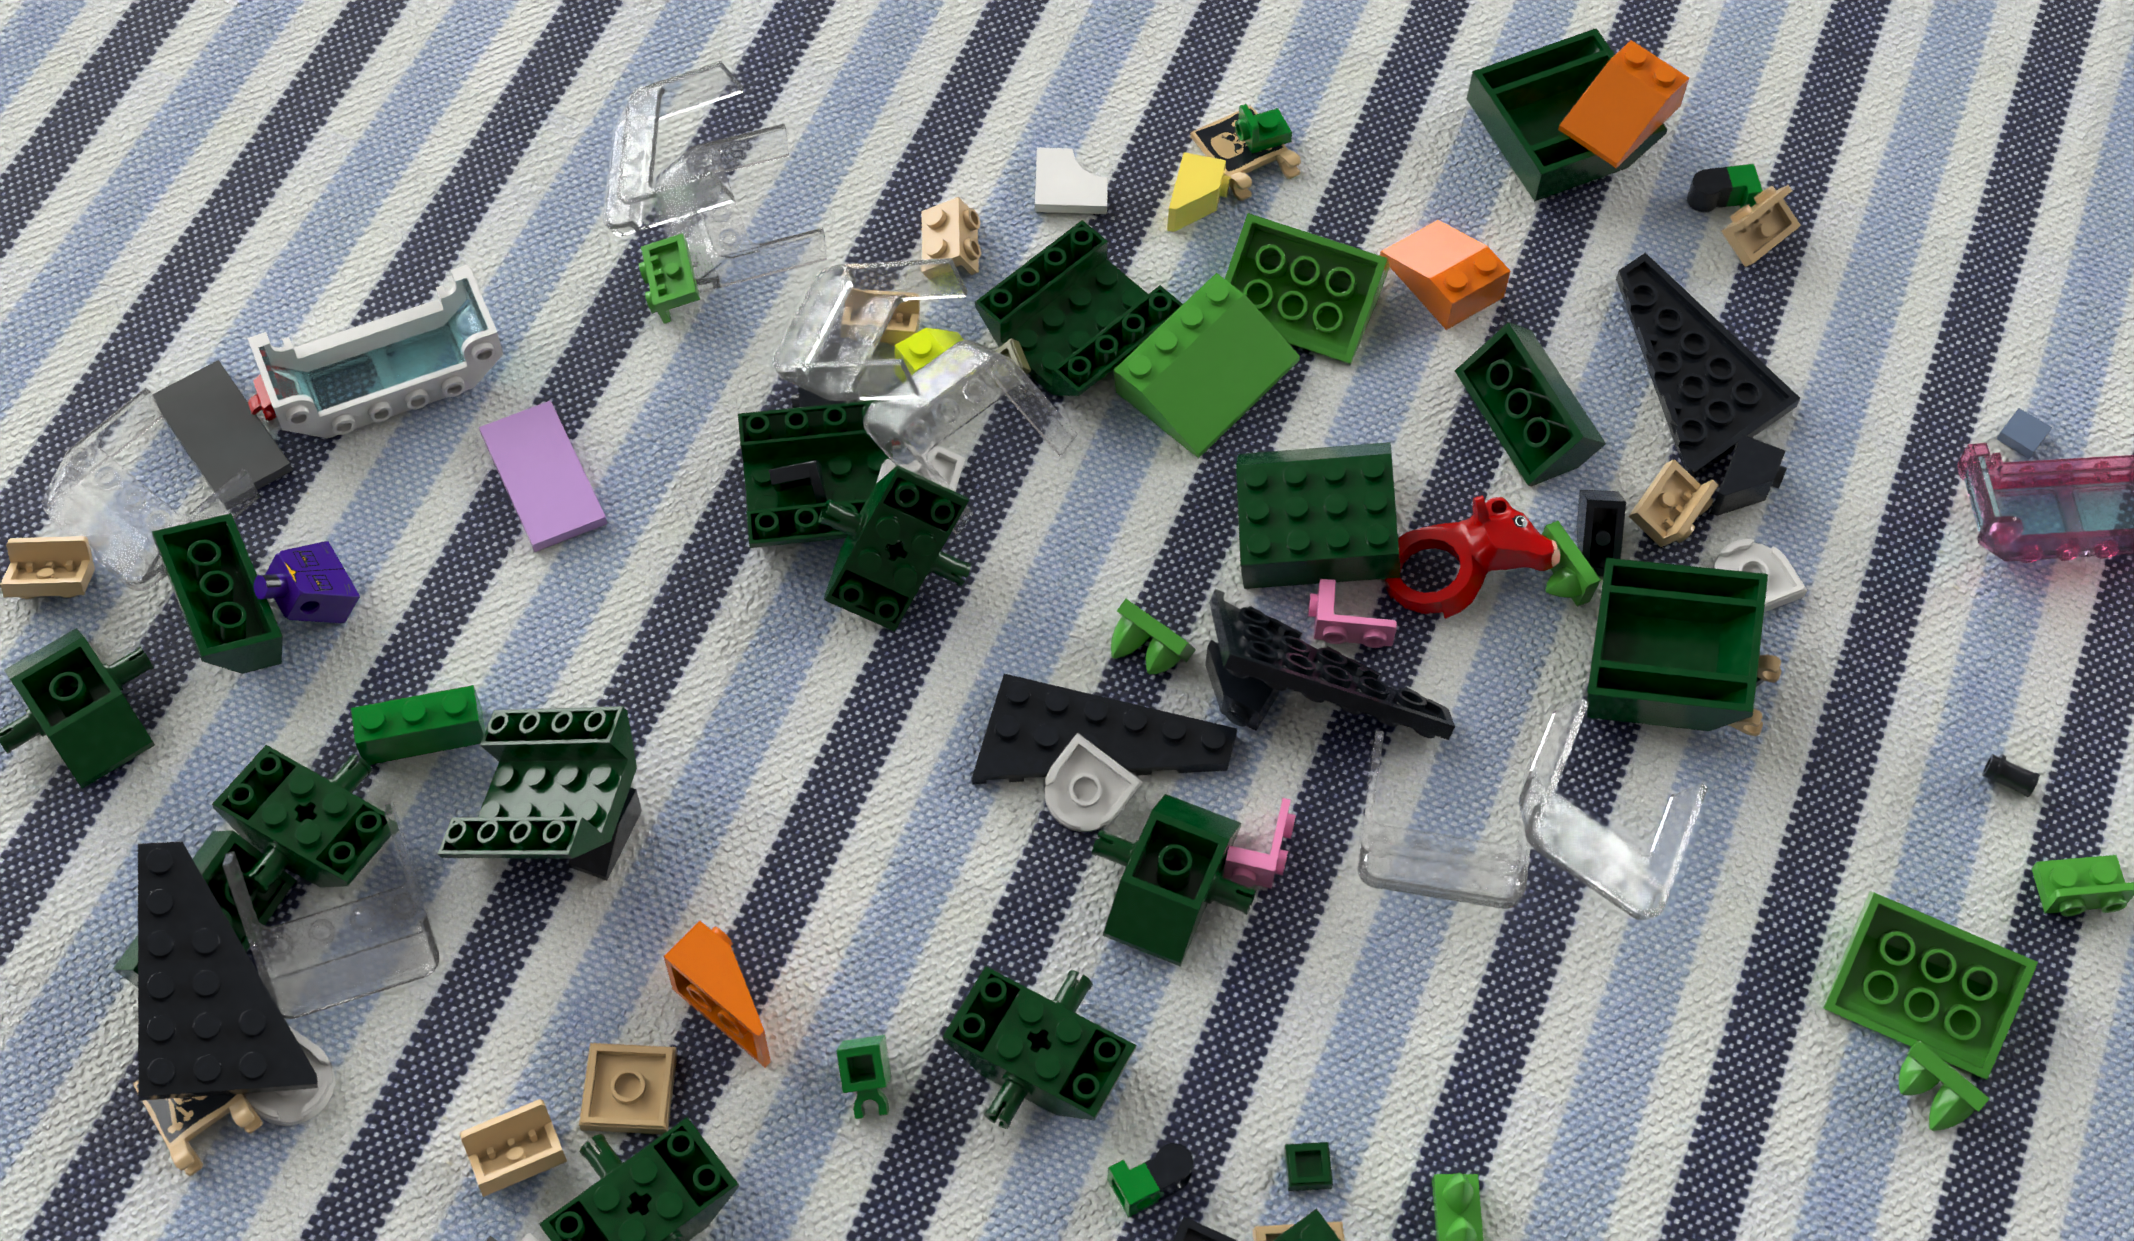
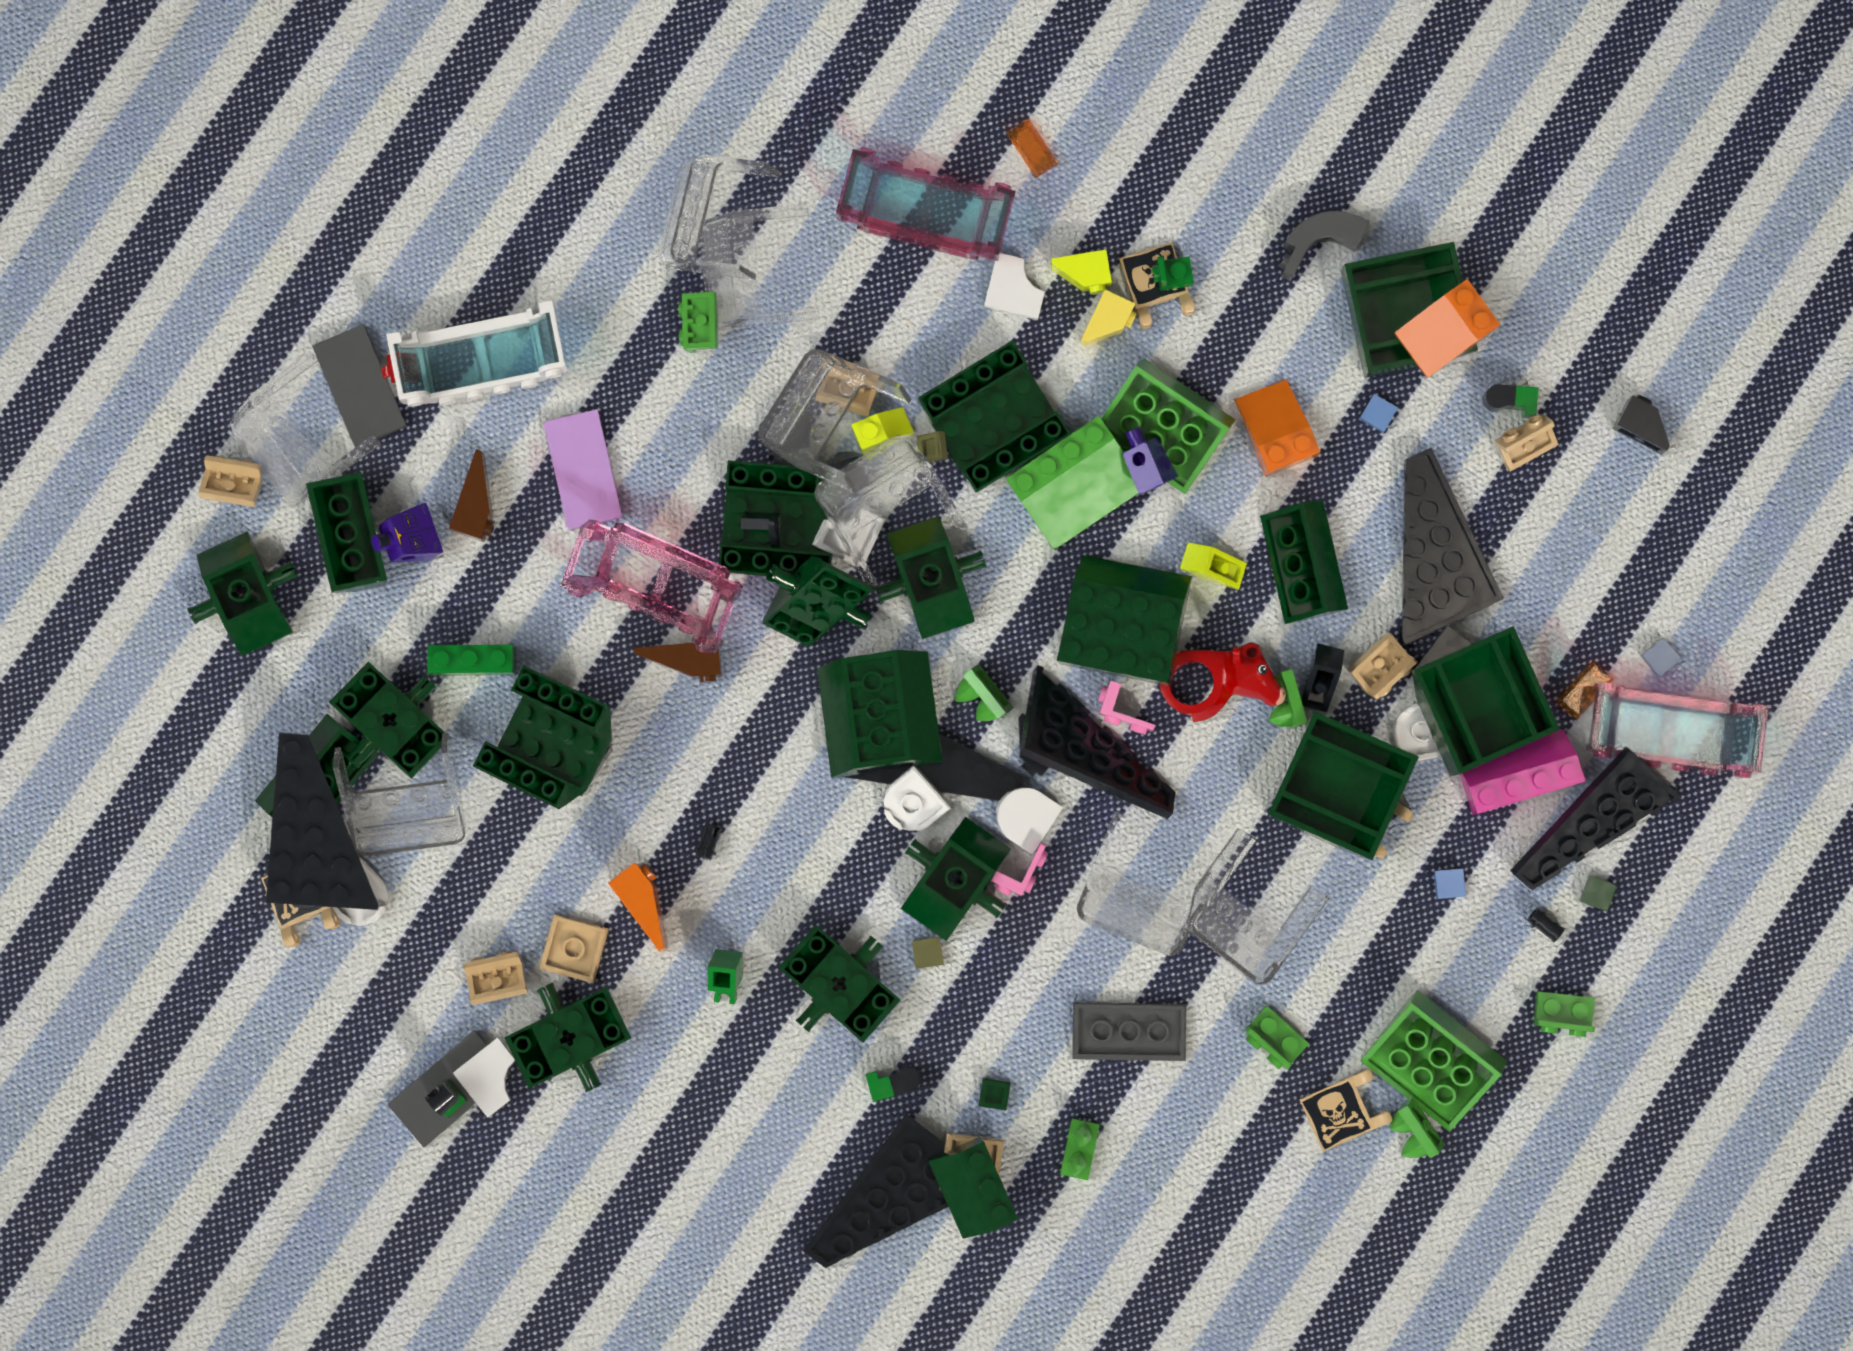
camera: 15 degrees right, 25 degrees up
(395, 545) = (474, 507): none -> reddish brown slope
(681, 534) = (671, 556): none -> clear pink windscreen
(729, 668) = (685, 660): none -> reddish brown slope
(802, 909) = (708, 841): none -> black pin
(933, 115) = (924, 207): none -> windscreen
(952, 232) = (914, 324): tan bracket -> none
(1007, 673) = (879, 711): none -> dark green slope
(1045, 511) = (938, 604): none -> dark green slope
(1051, 42) = (1032, 148): none -> clear orange tile
(1149, 146) = (1085, 270): none -> neon yellow slope
(1157, 987) = (927, 952): none -> olive tile
(1251, 777) = (1026, 817): none -> white tile
(1295, 321) = (1147, 462): none -> torso
(1413, 428) = (1213, 565): none -> neon yellow slope
(1433, 56) = (1328, 226): none -> dark grey arch
(1480, 1037) = (1129, 1031): none -> dark grey tile
(1565, 234) = (1378, 413): none -> medium blue tile
(1693, 1001) = (1275, 1037): none -> bright green bracket
(1821, 1087) = (1339, 1112): none -> flag
(1822, 510) = (1482, 702): none -> dark green slope
(1860, 752) = (1449, 883): none -> medium blue tile
(1896, 187) = (1643, 424): none -> black slope
(1903, 597) = (1523, 773): none -> dark pink slope
(1941, 491) = (1580, 693): none -> clear orange tile
(2028, 621) = (1602, 813): none -> black wing
(2063, 724) = (1598, 893): none -> dark green tile

